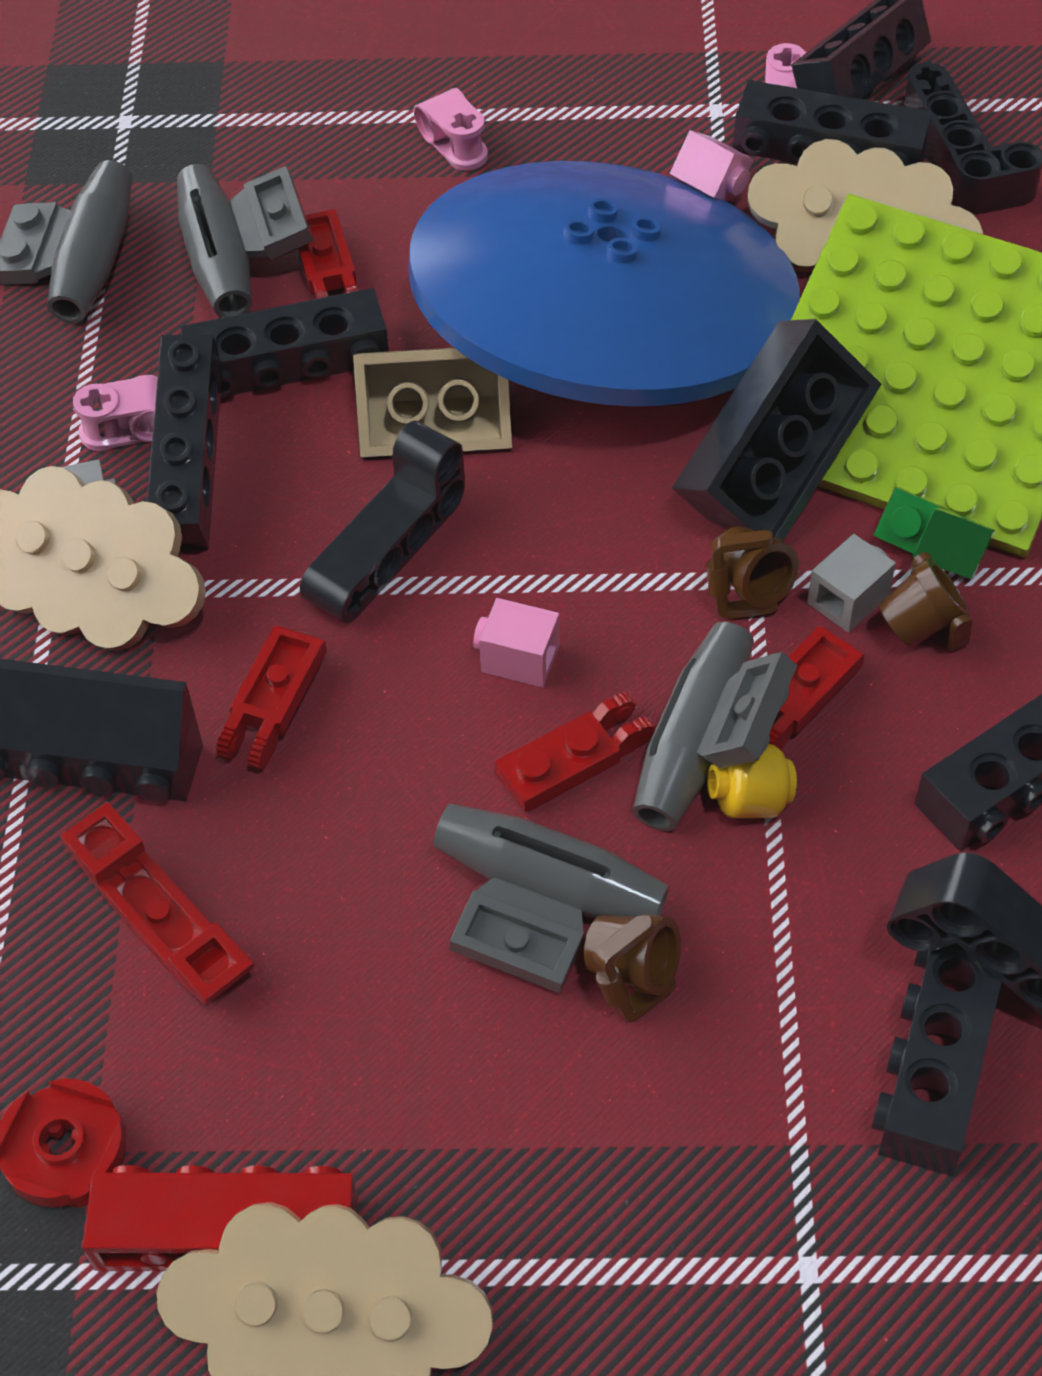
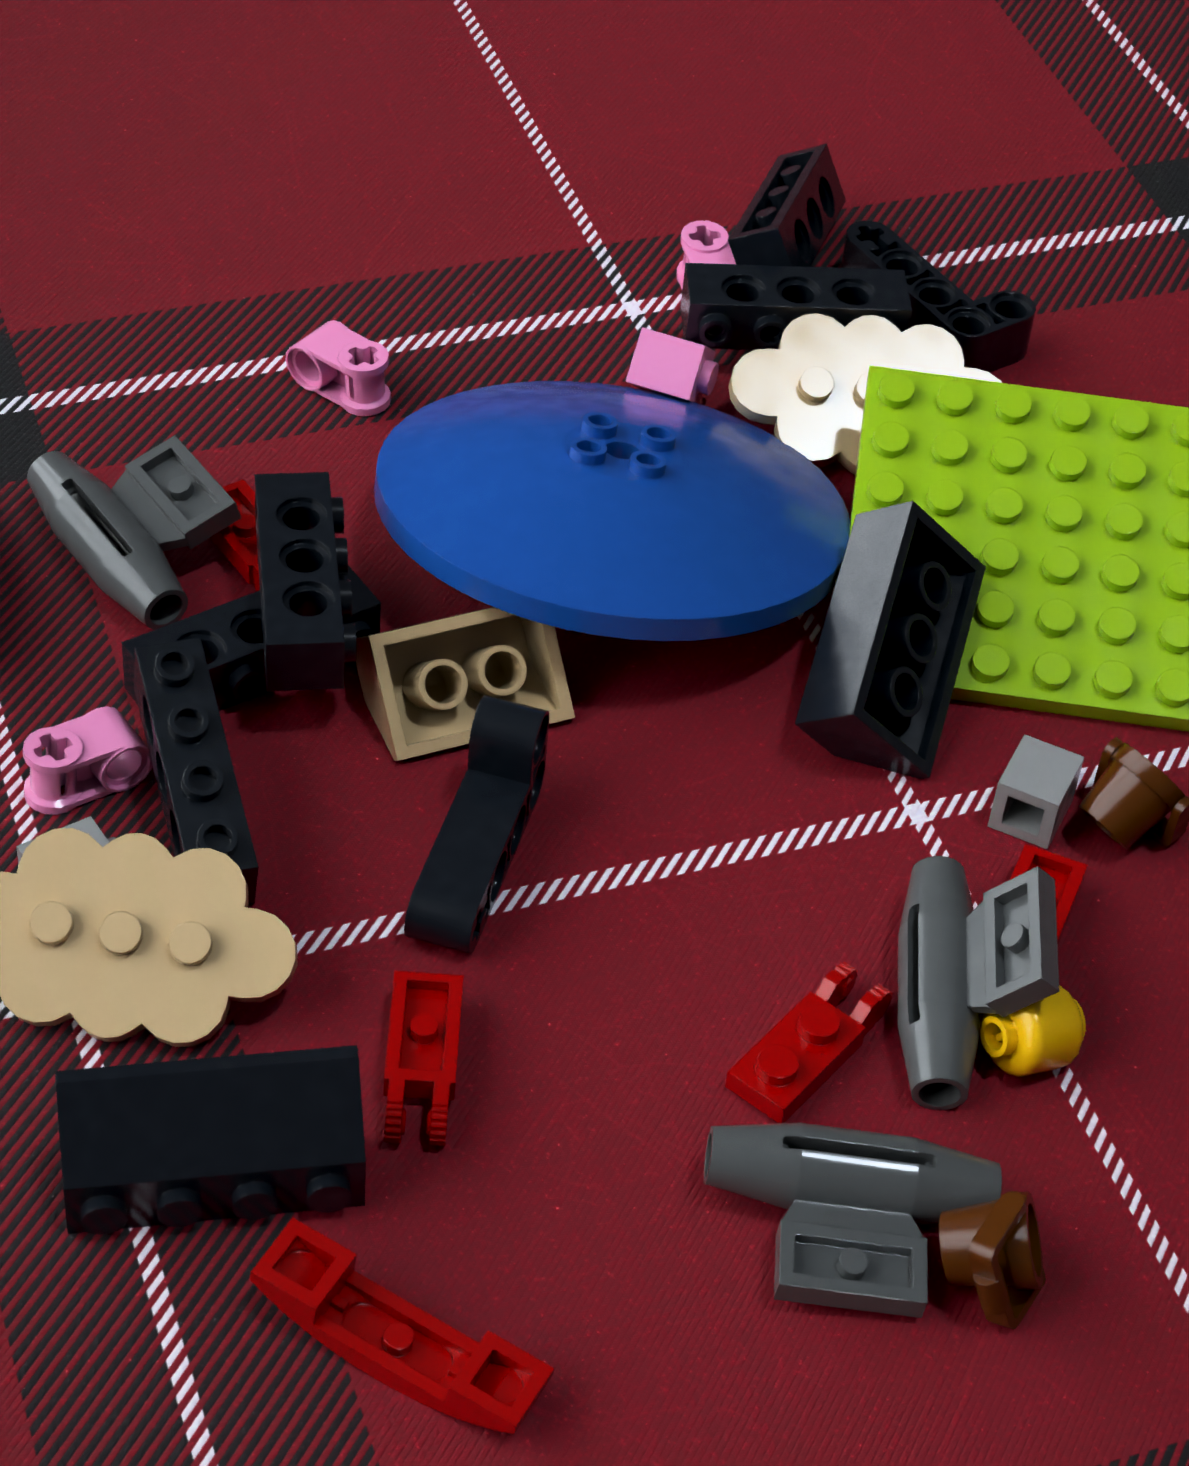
camera: 25 degrees left, 10 degrees down
(322, 301) = (301, 583): none -> black brick
(518, 642) = (693, 931): bright pink brick -> none
(756, 566) = (925, 791): reddish brown piece -> none
(924, 526) = (1093, 717): green slope -> none

